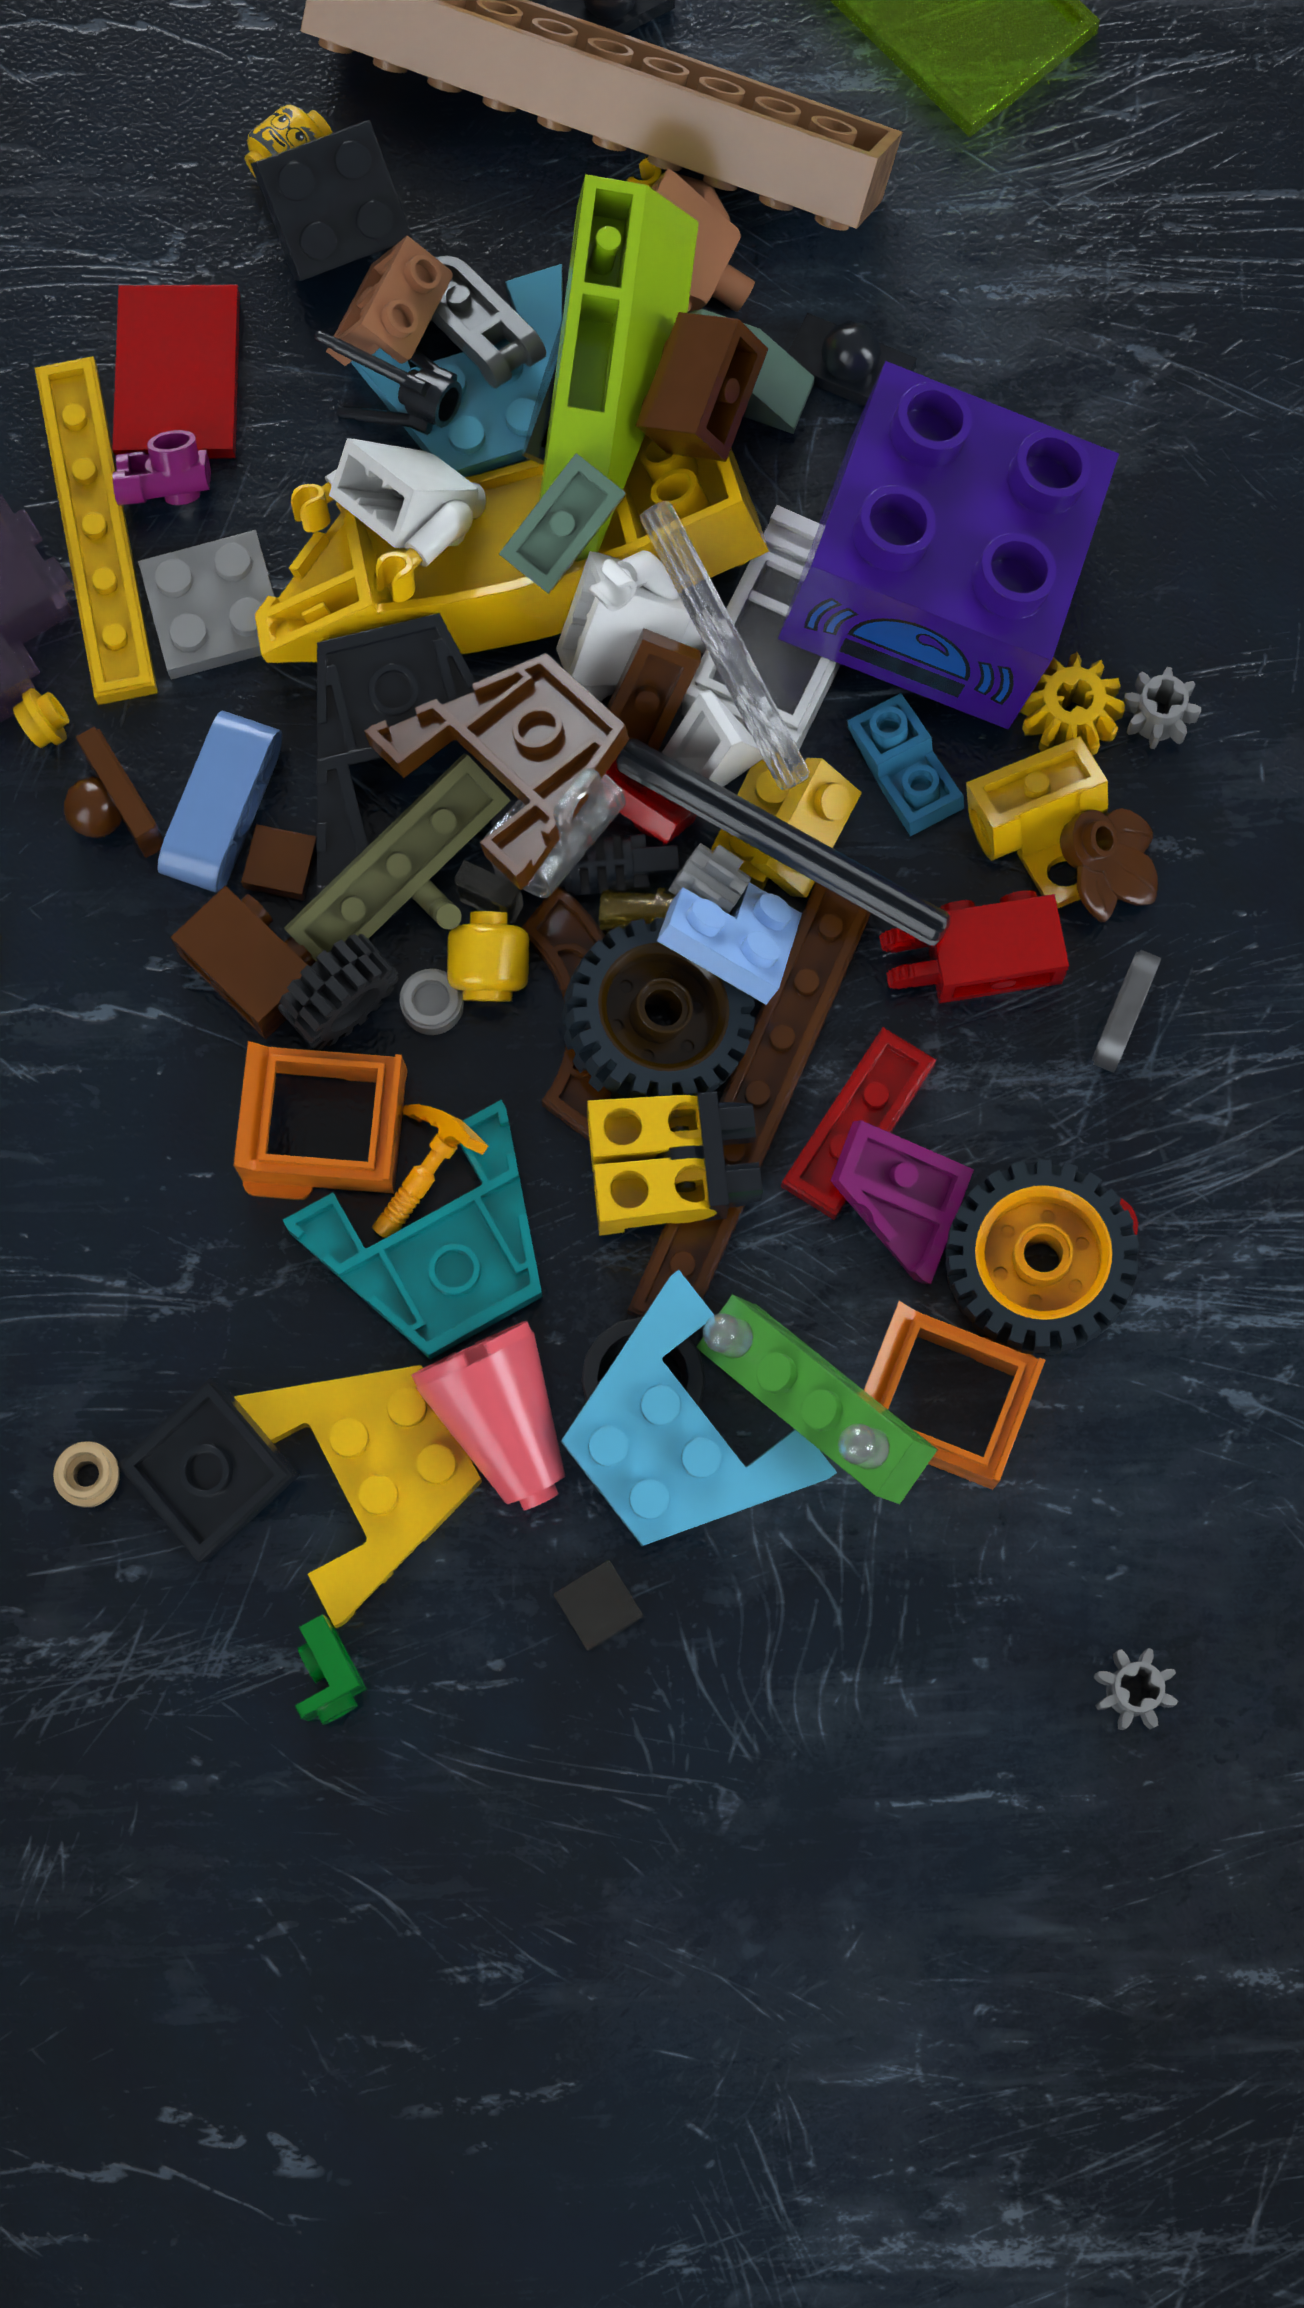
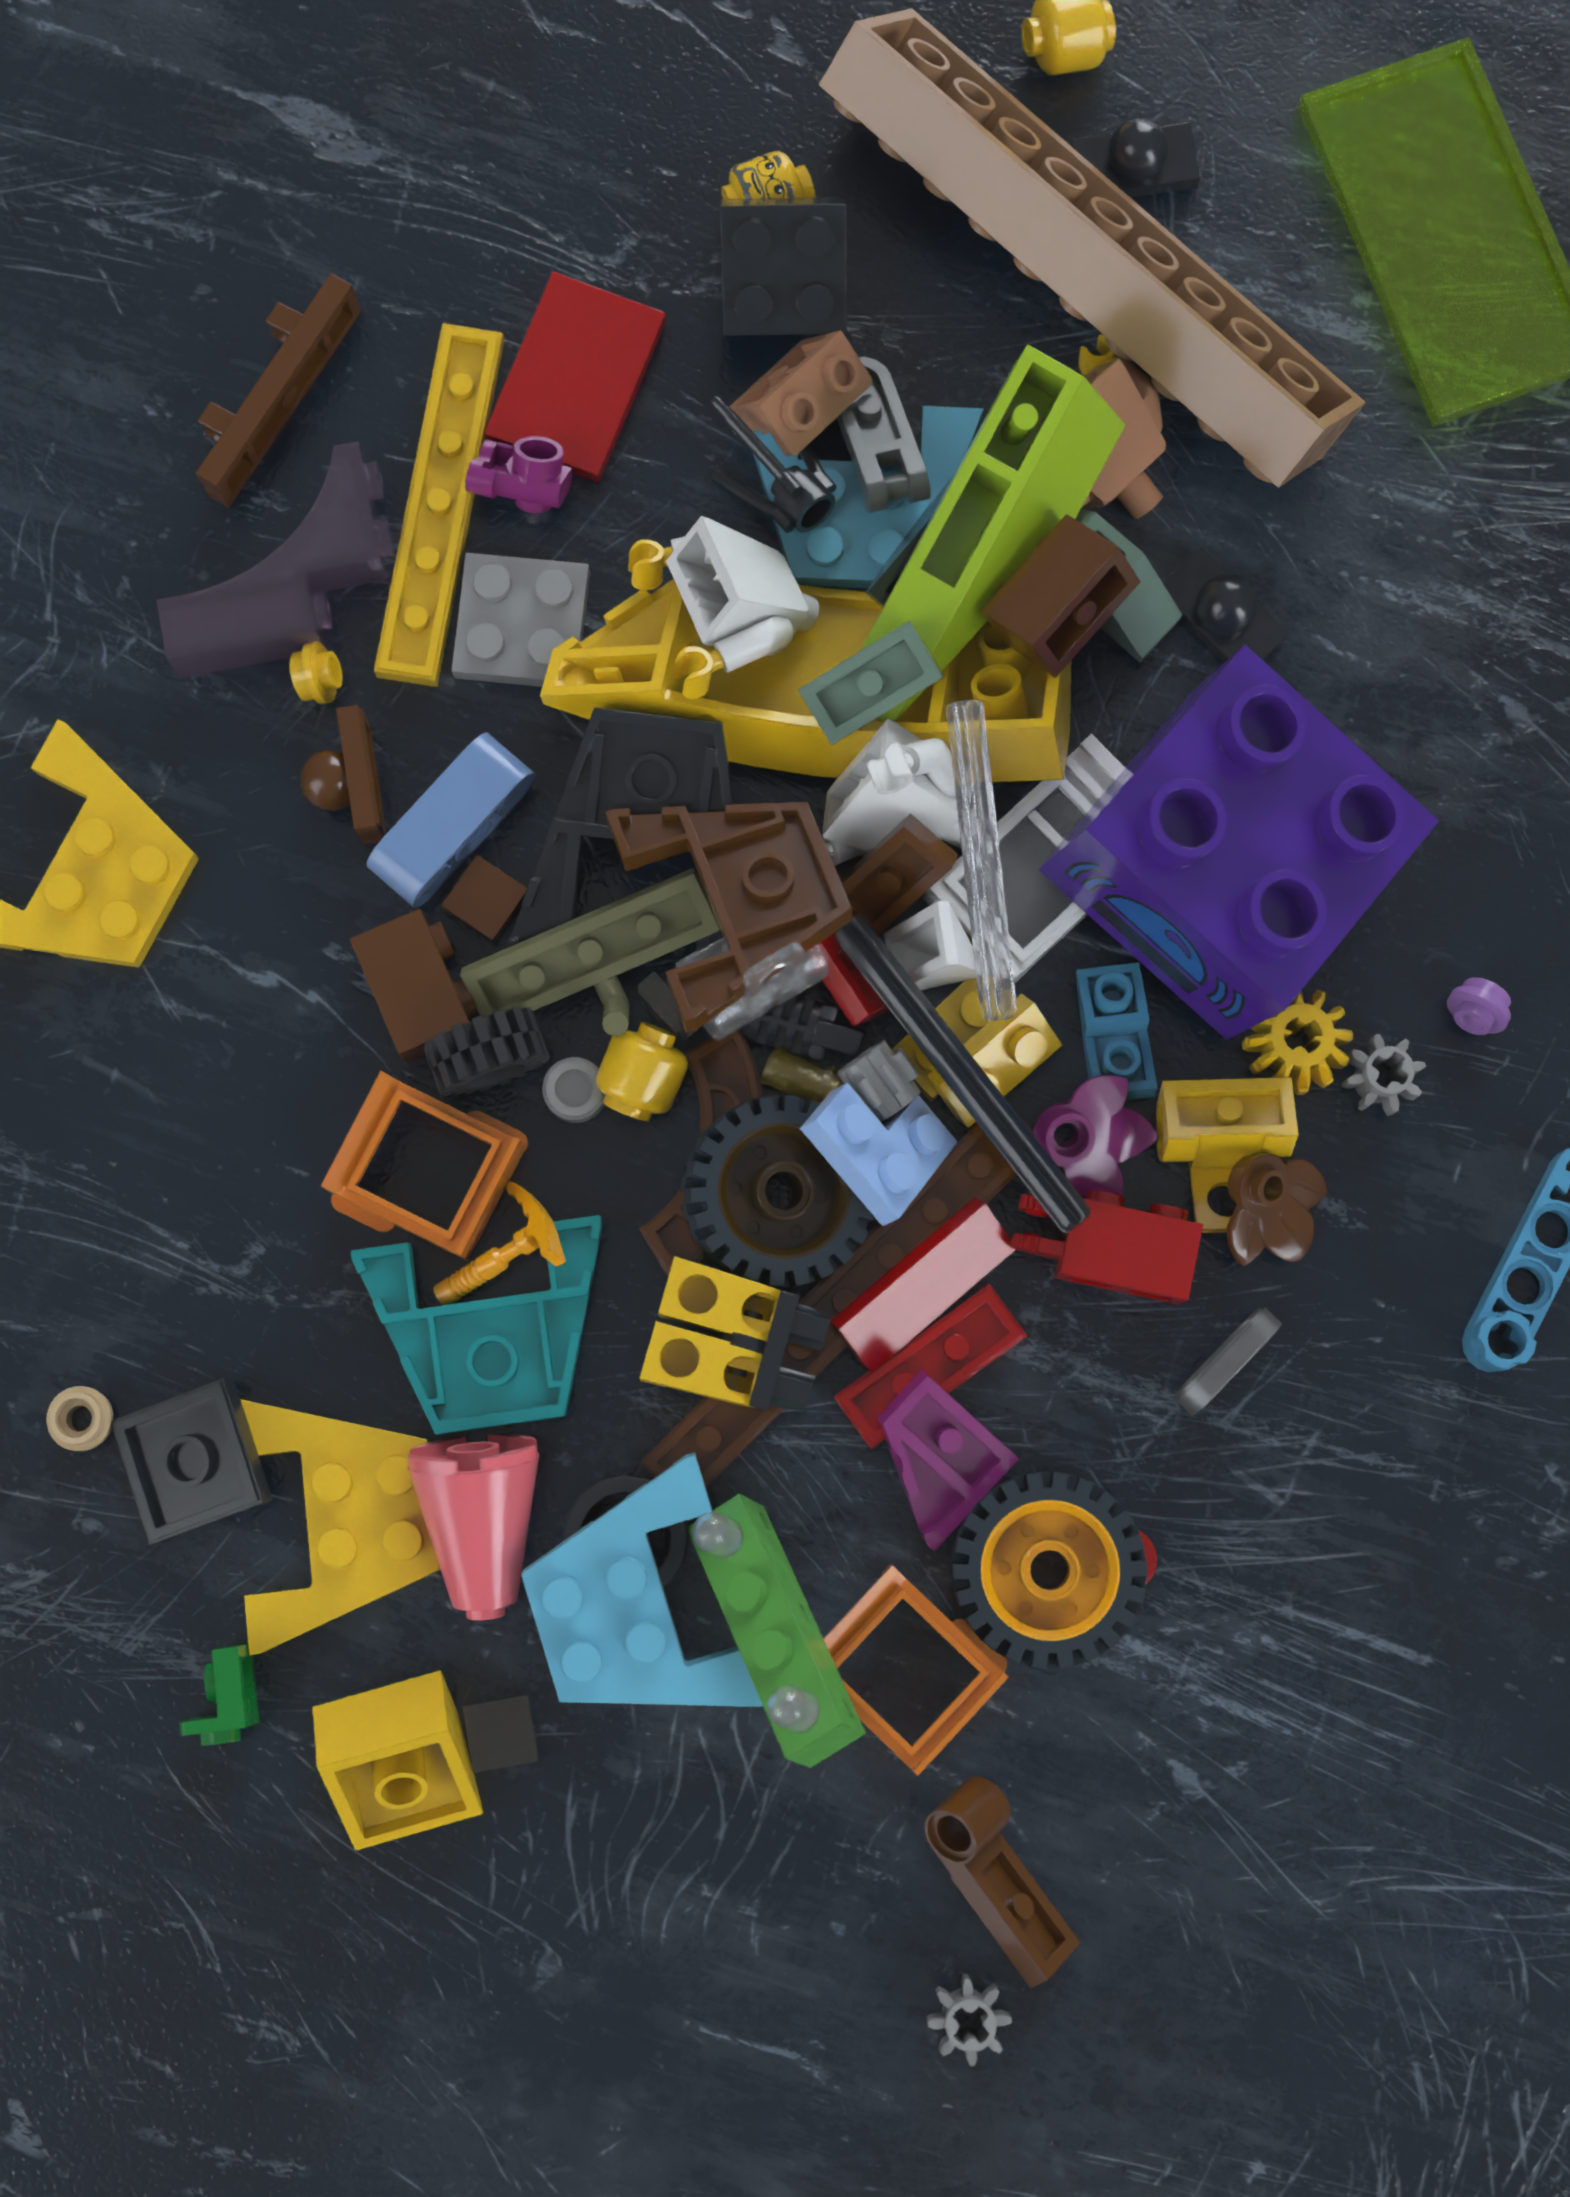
camera: 20 degrees right, 5 degrees up
(512, 1666) = (395, 1760): none -> yellow slope
(823, 1049) = (923, 1284): none -> tile
(928, 851) = (1101, 1134): none -> magenta plate
(1108, 1554) = (995, 1881): none -> reddish brown plate
(1221, 617) = (1480, 1006): none -> medium lavender plate

